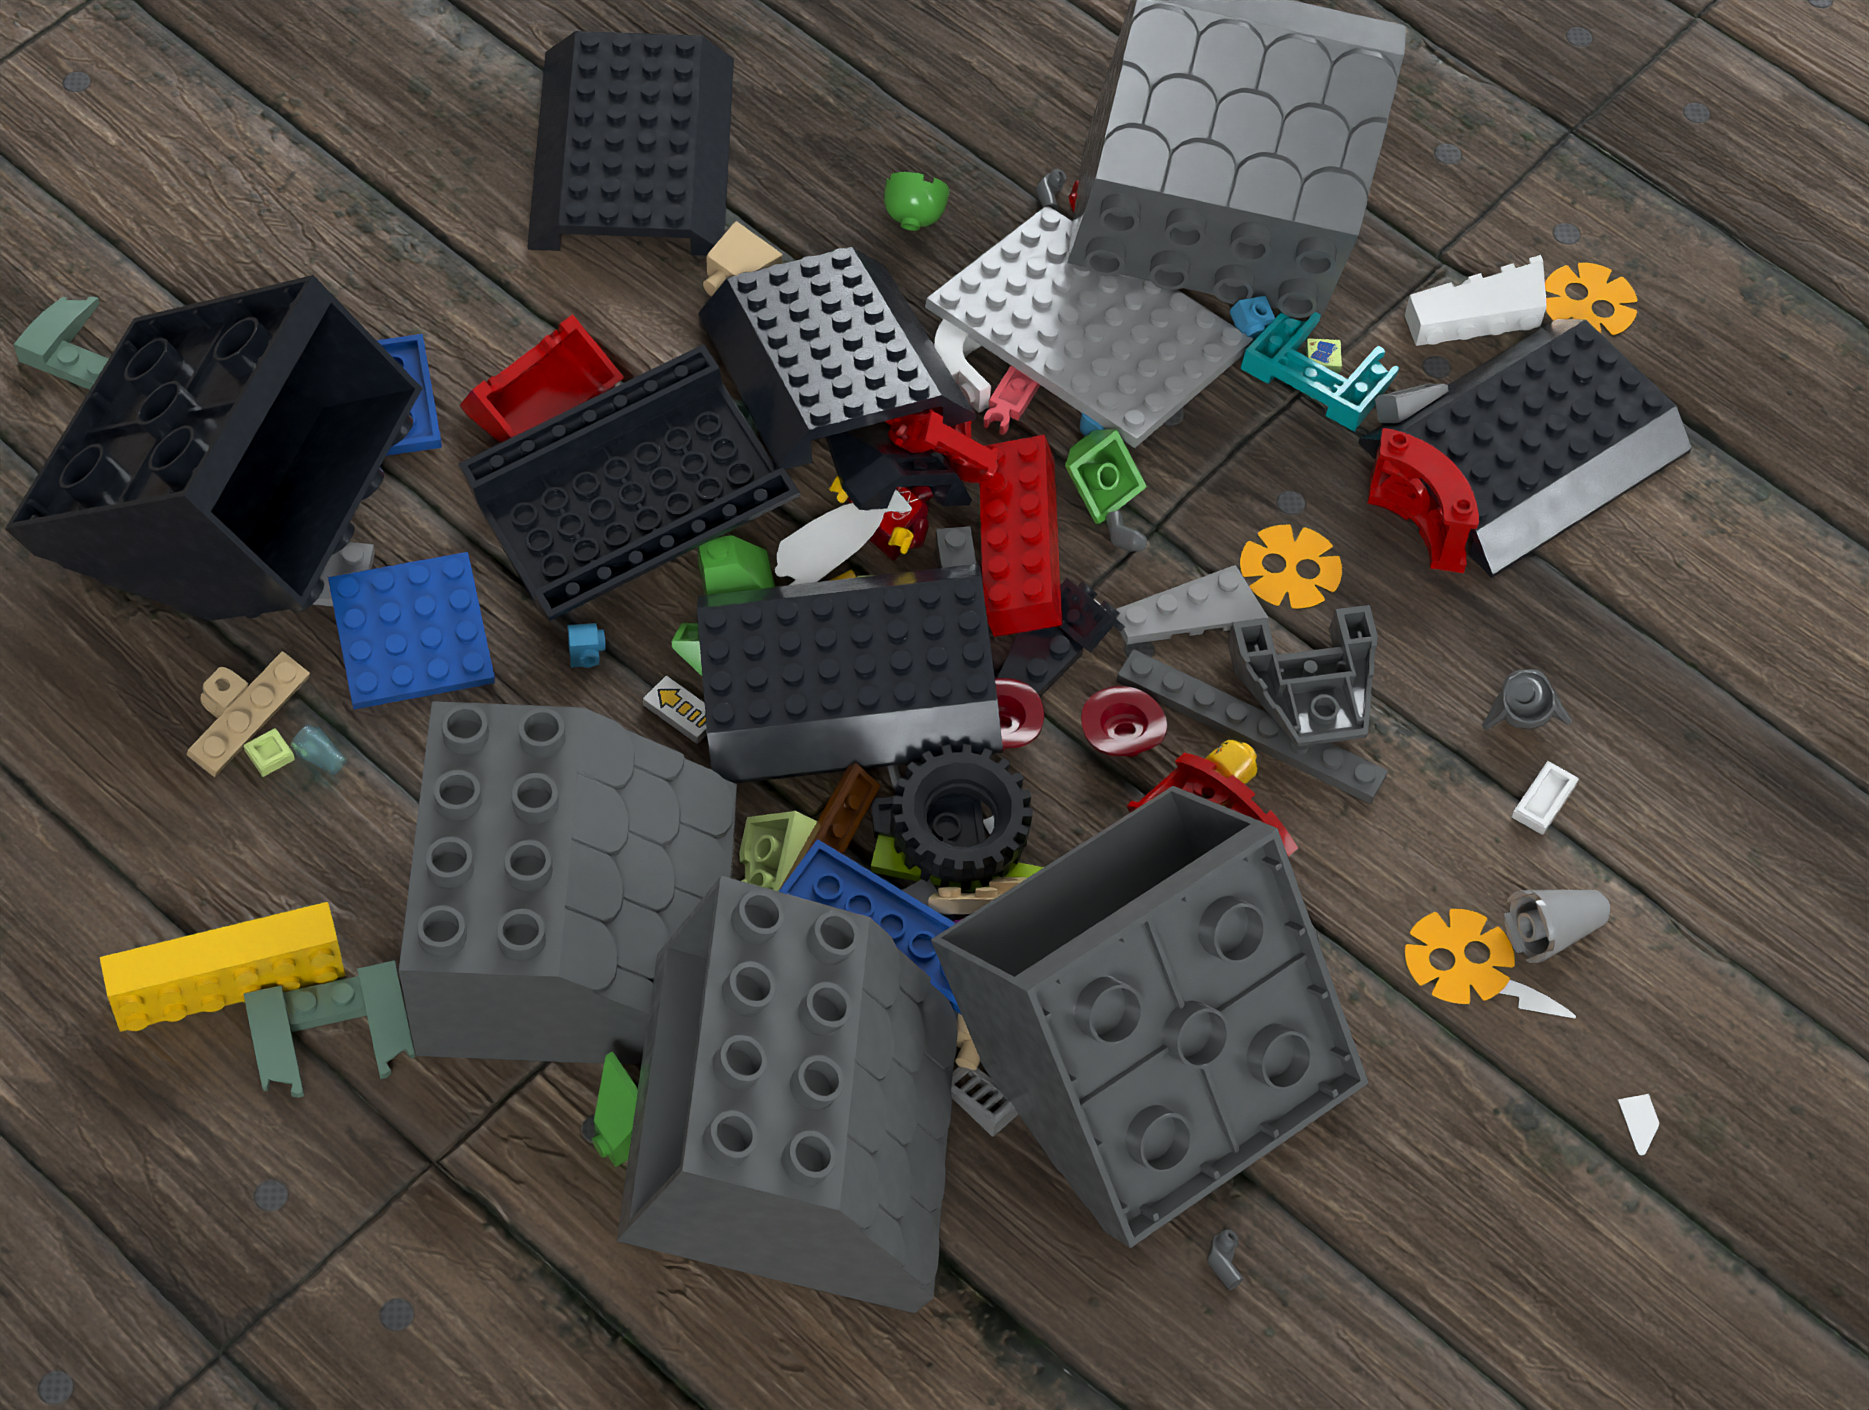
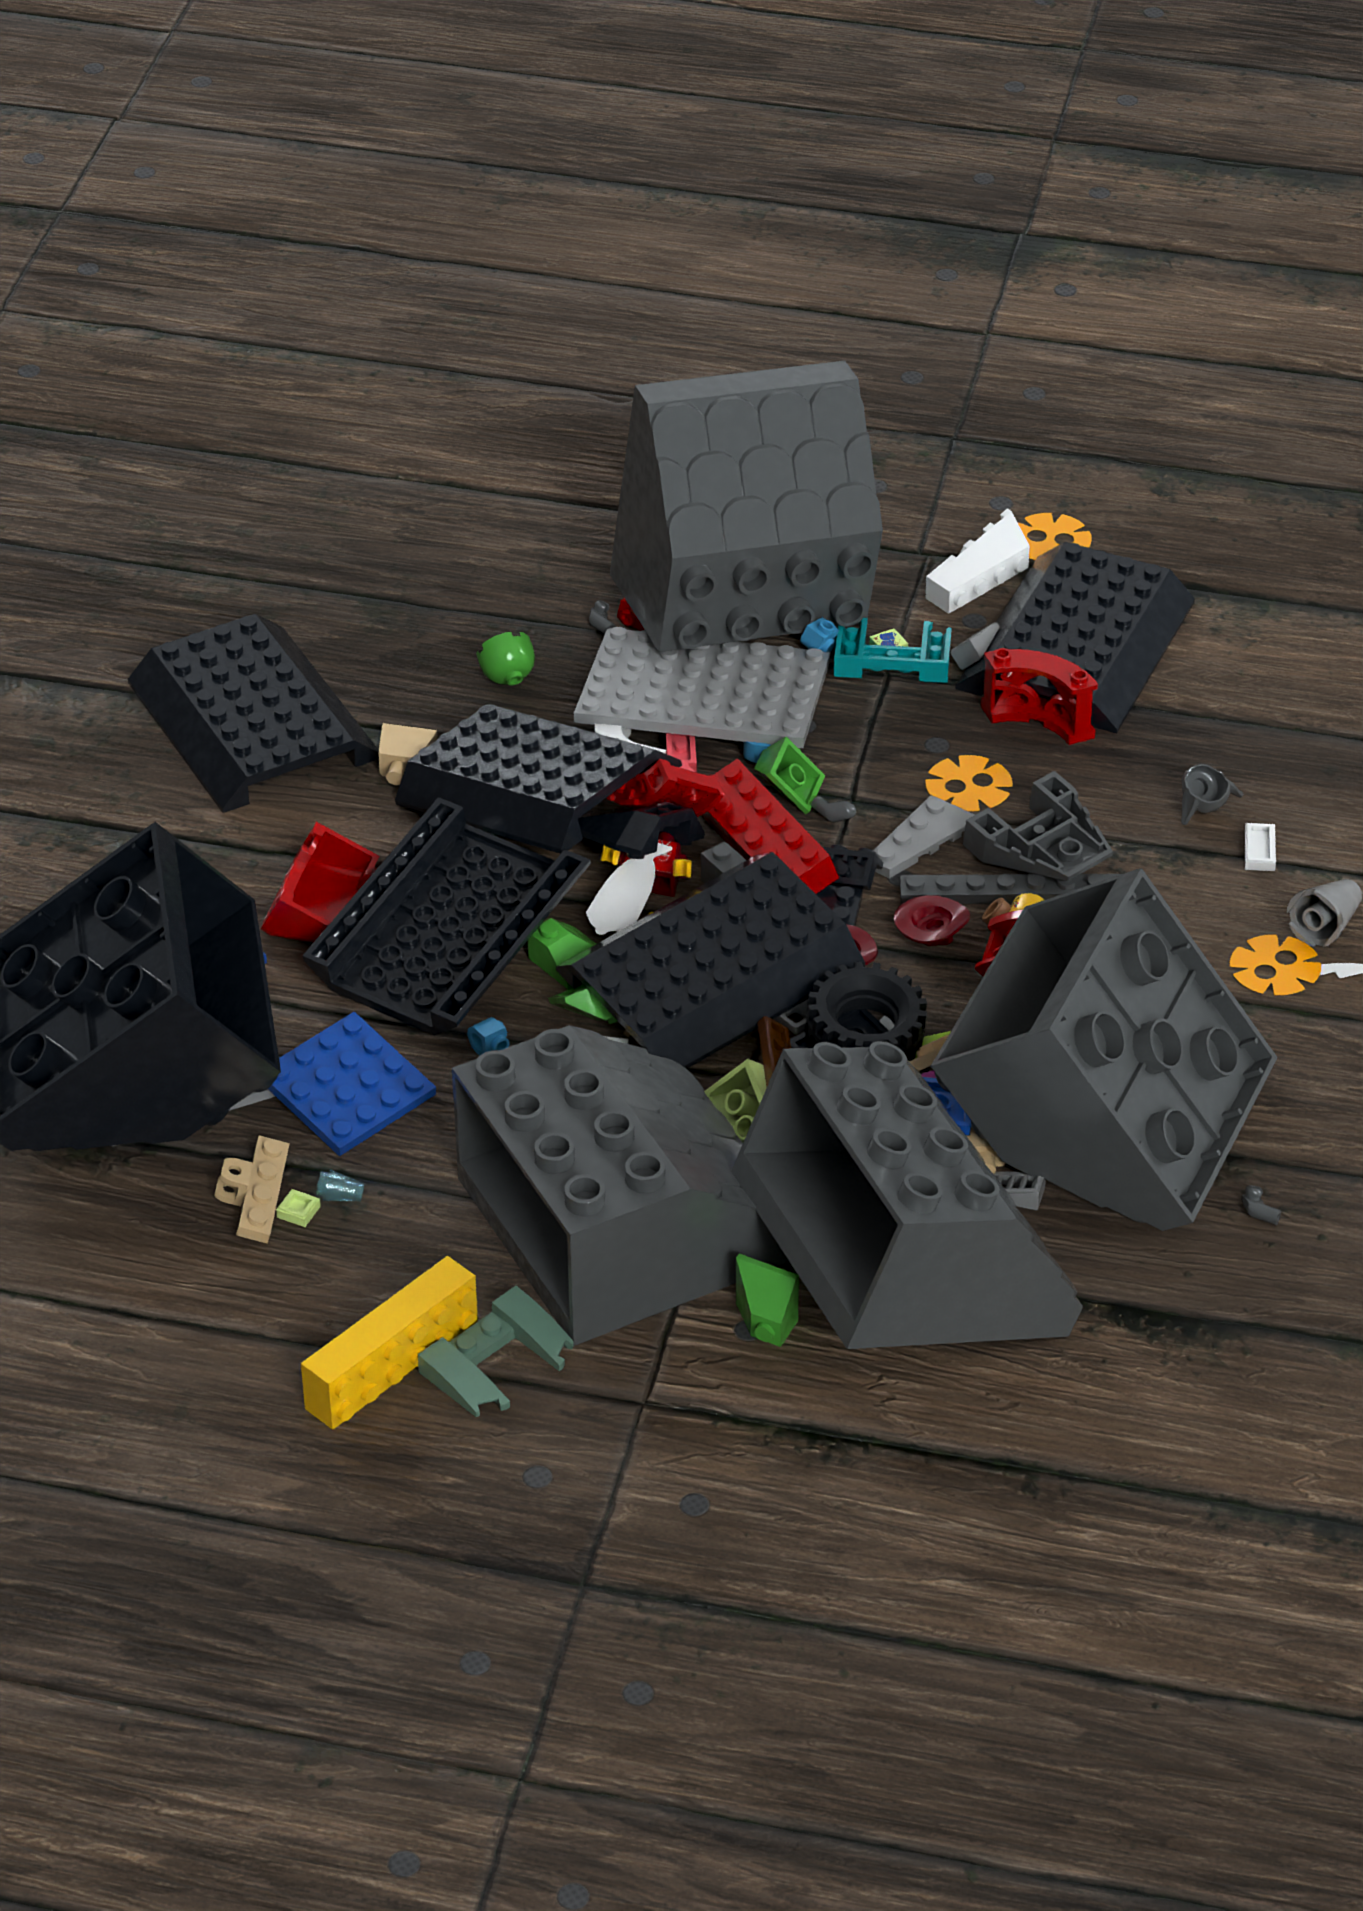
camera: 25 degrees left, 15 degrees down
(1201, 744) = (996, 908): none -> medium nougat tile

